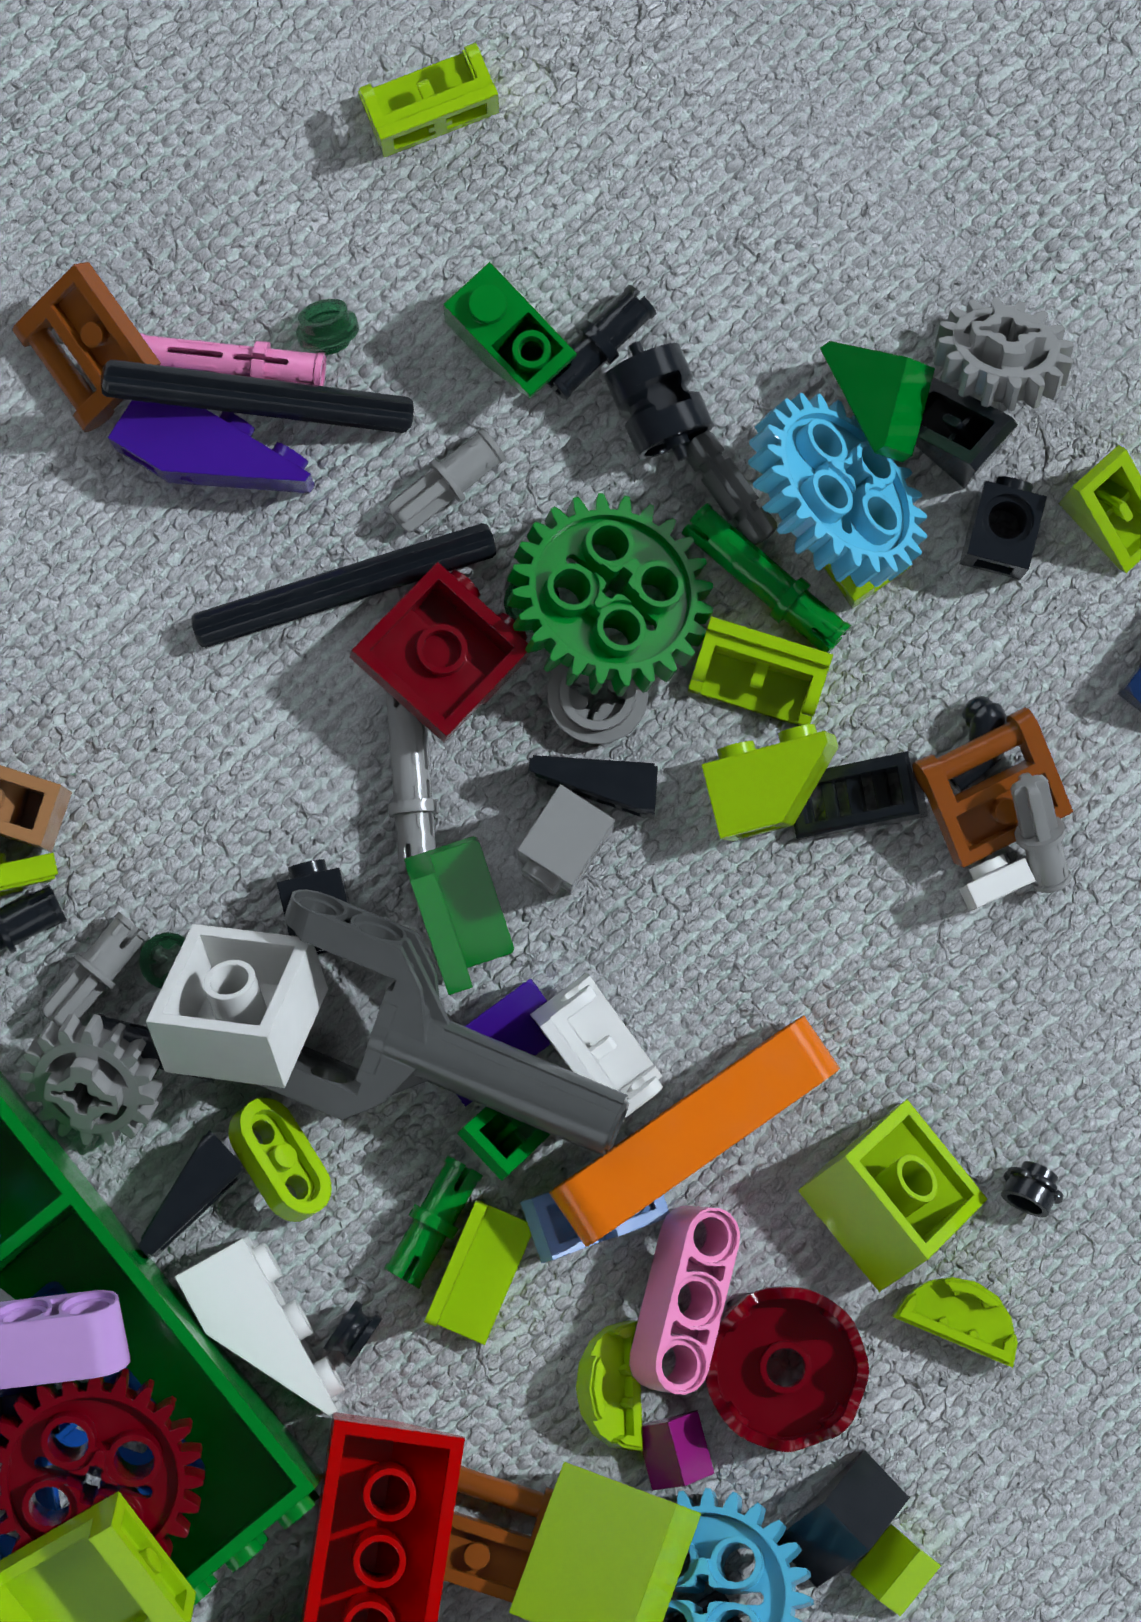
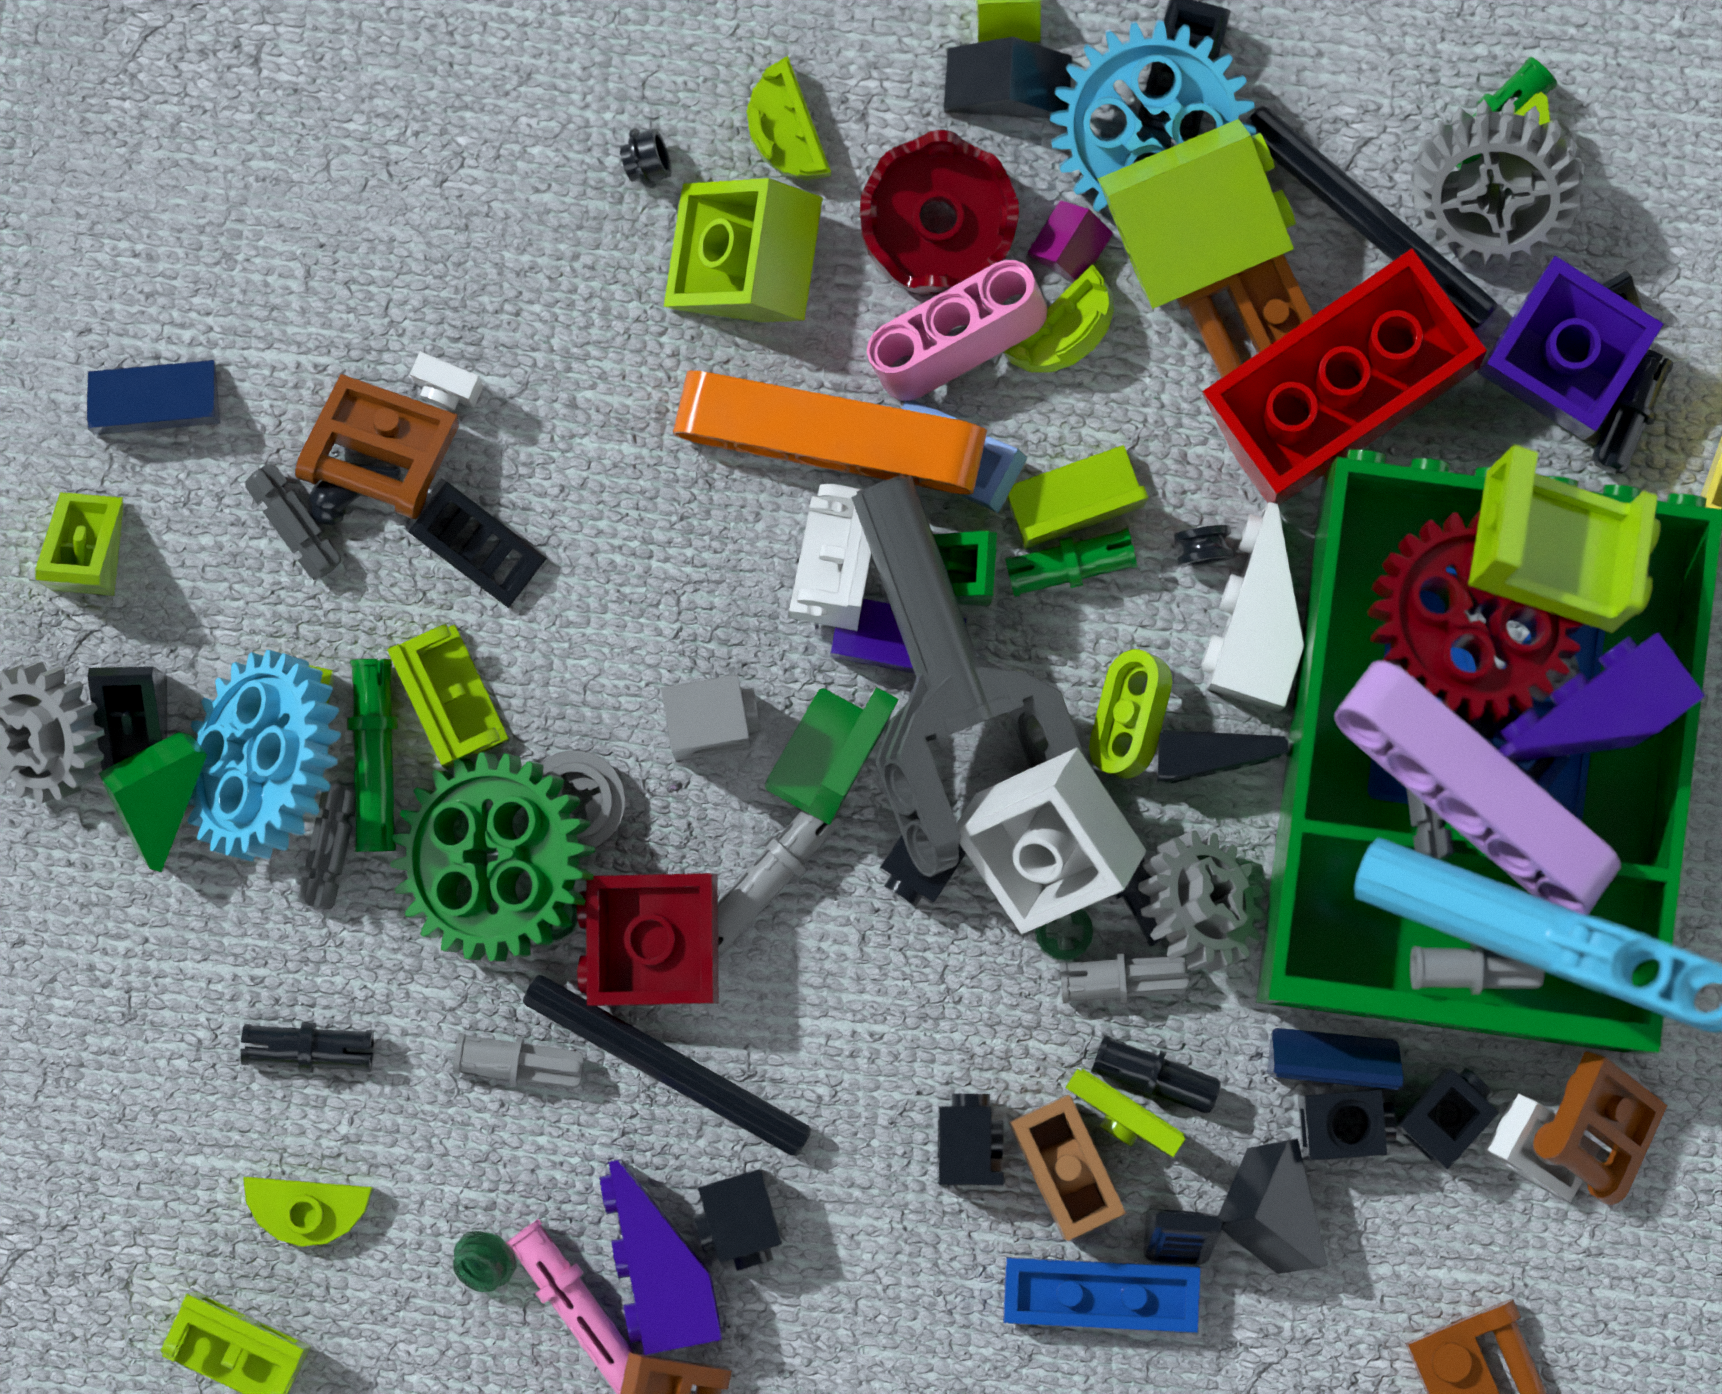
camera: 135 degrees left, 0 degrees up
(81, 746) = (968, 1142): none -> black brick
(184, 532) = (738, 1220): none -> black brick
(256, 396) = (587, 1257): black axle -> none
(484, 234) = (305, 1210): none -> lime plate
(507, 332) = (364, 1114): green slope -> none
(609, 782) = (629, 724): black slope -> none
(657, 397) = (311, 957): black wheel -> none
(766, 786) = (528, 609): lime slope -> none
(994, 678) = (293, 521): none -> dark grey axle
(1000, 555) = (201, 615): black brick -> none
(1040, 833) = (380, 380): light grey axle -> none

